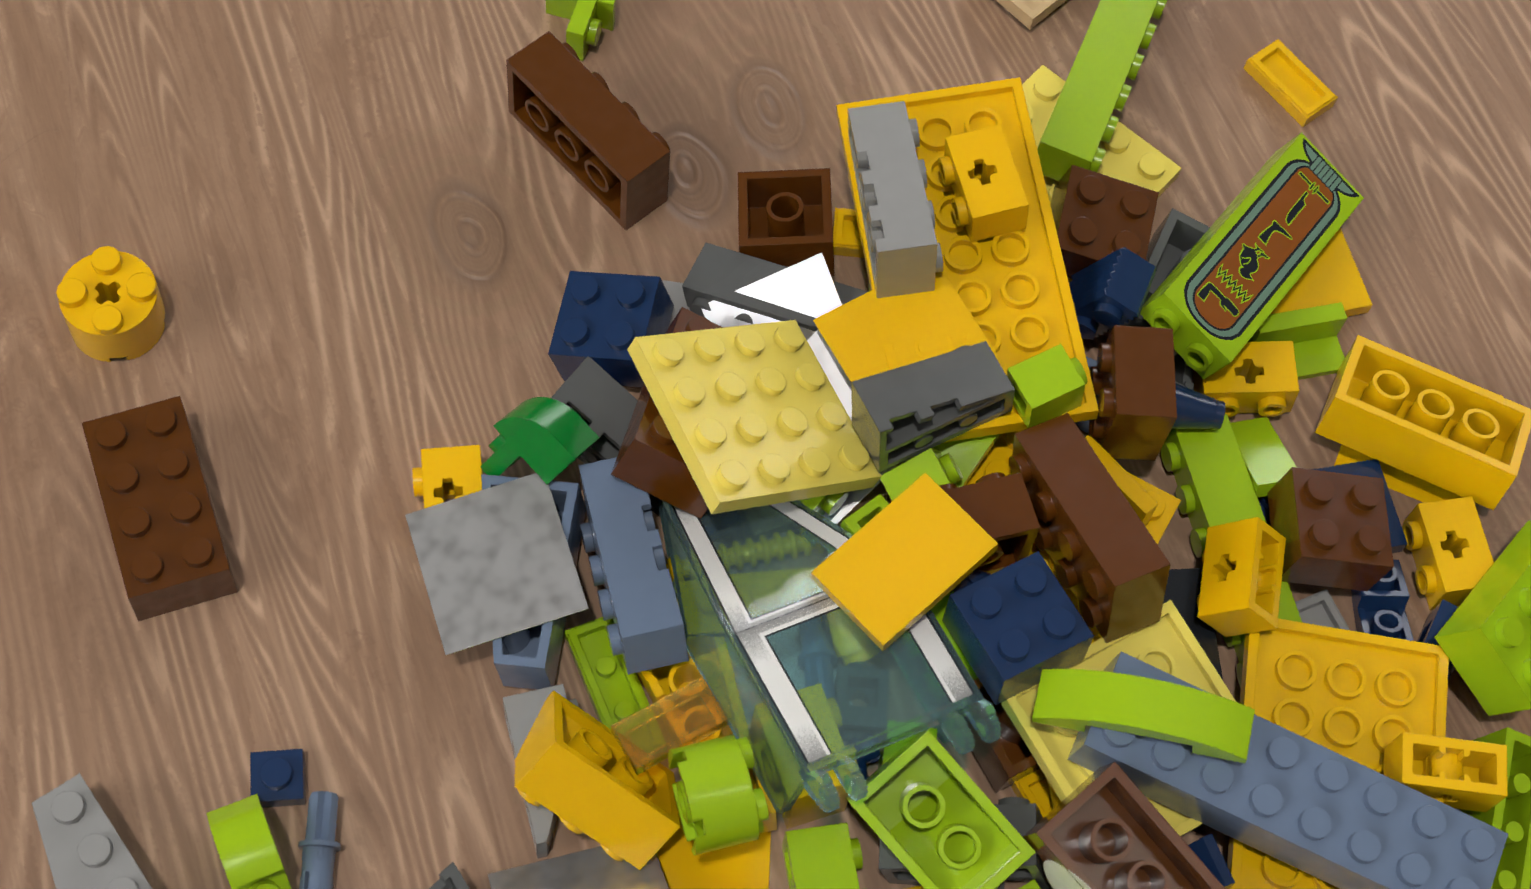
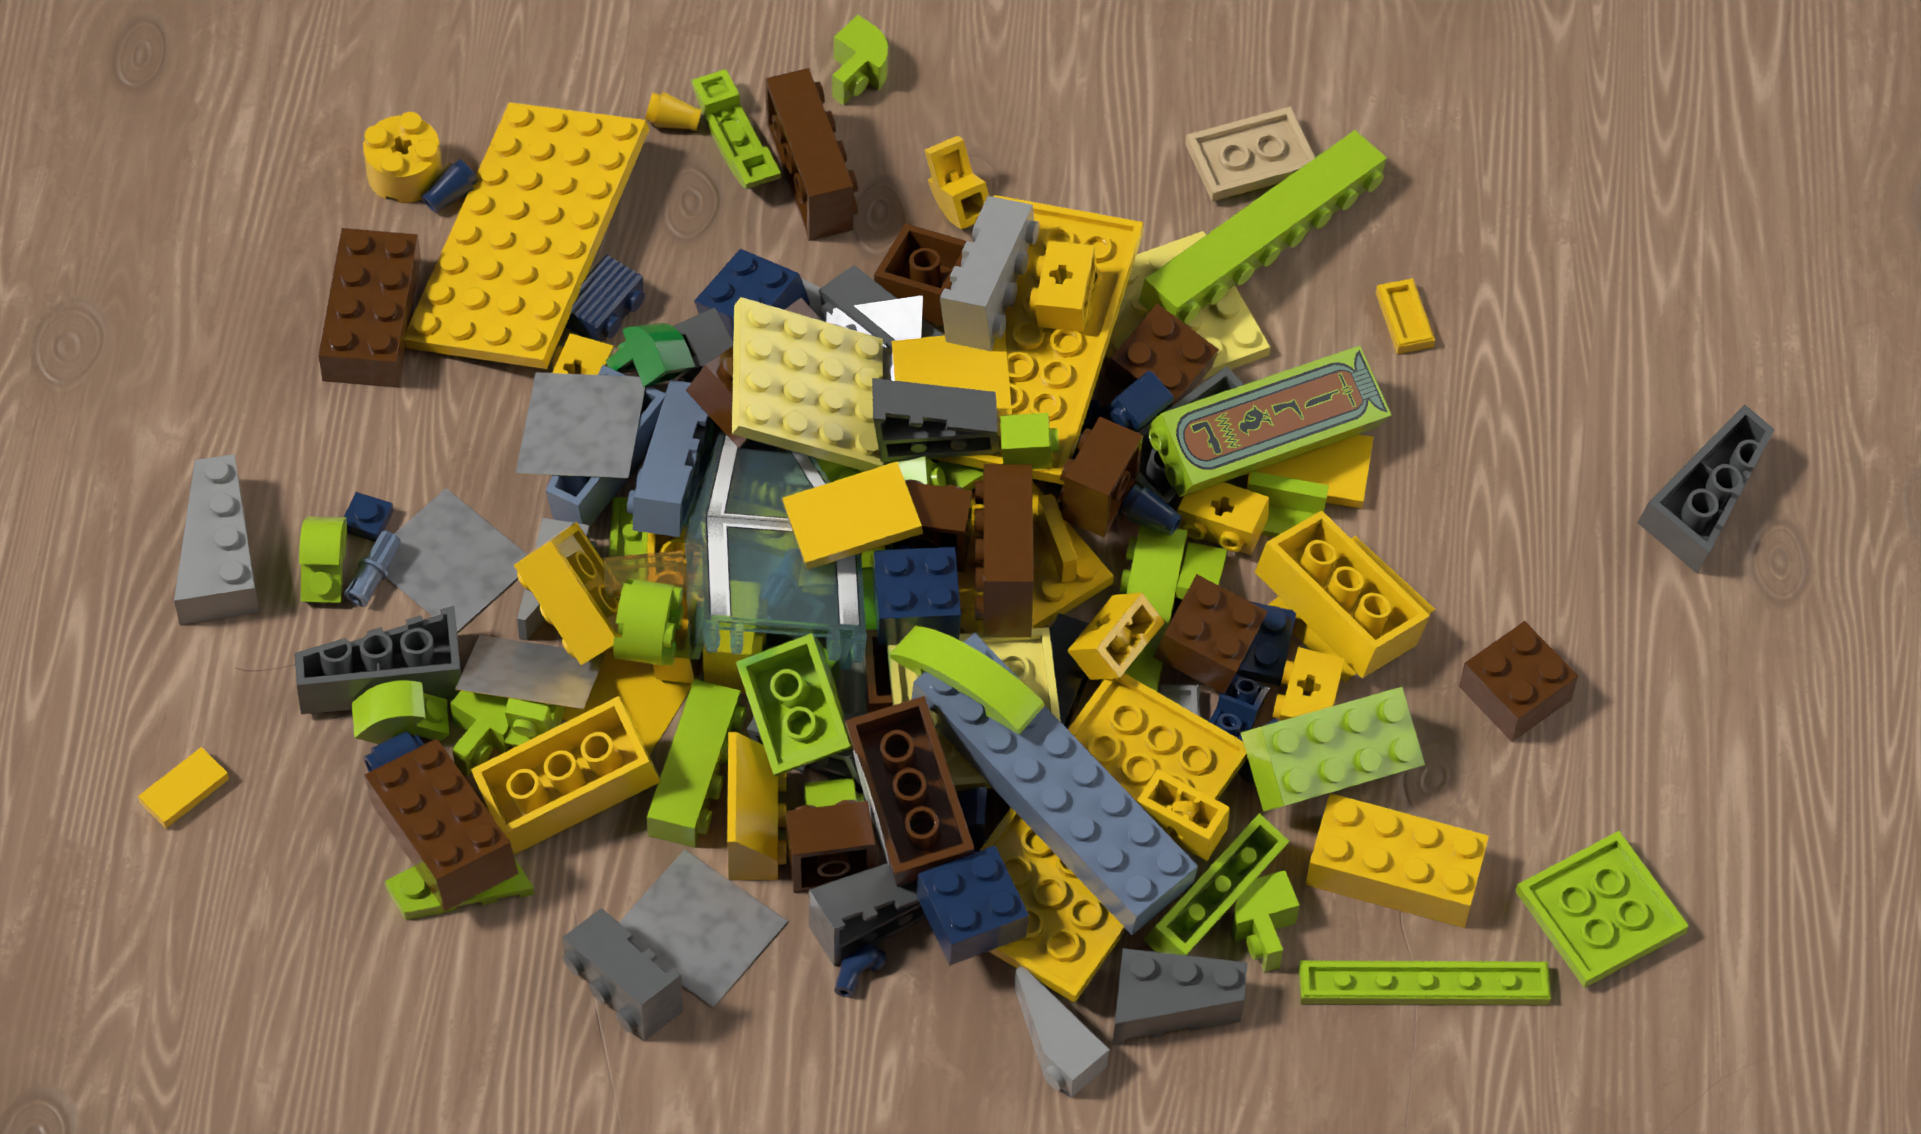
camera: 30 degrees right, 5 degrees down
(184, 317) = (450, 185): none -> dark blue cone
(306, 349) = (526, 235): none -> yellow plate
(401, 137) = (670, 112): none -> yellow cone
(409, 789) = (452, 559): none -> flat silver sticker
(433, 391) = (605, 300): none -> dark blue brick
(482, 137) = (732, 130): none -> lime slope
(761, 113) = (954, 184): none -> yellow brick

